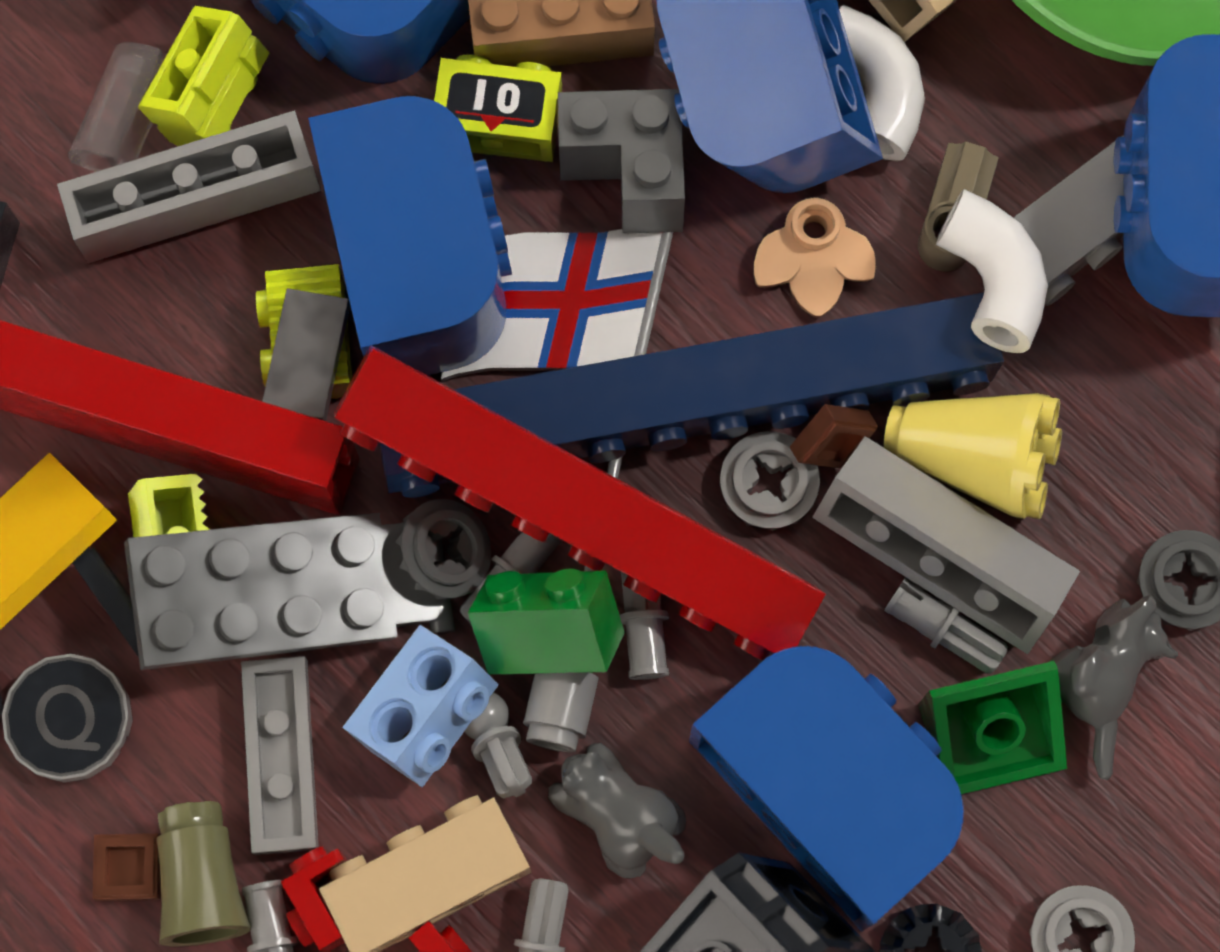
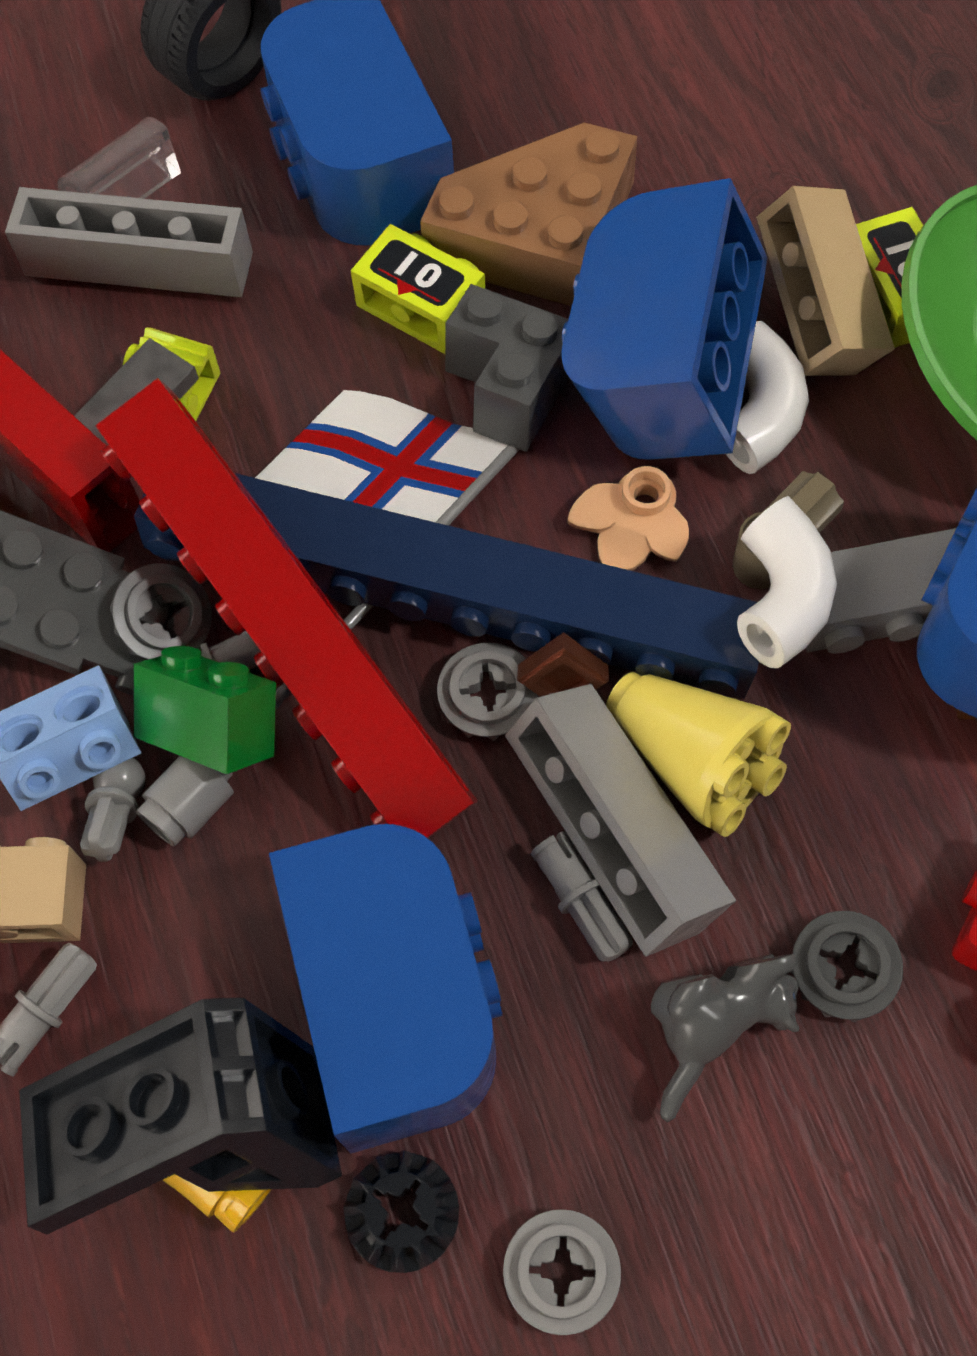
camera: 30 degrees right, 10 degrees down
(204, 76) = (196, 163): neon yellow brick -> none
(414, 231) = (280, 345): blue brick -> none
(627, 818) = (184, 922): dark grey animal -> none
(644, 635) = (298, 775): light grey axle -> none
(998, 727) = (578, 1014): green slope -> none

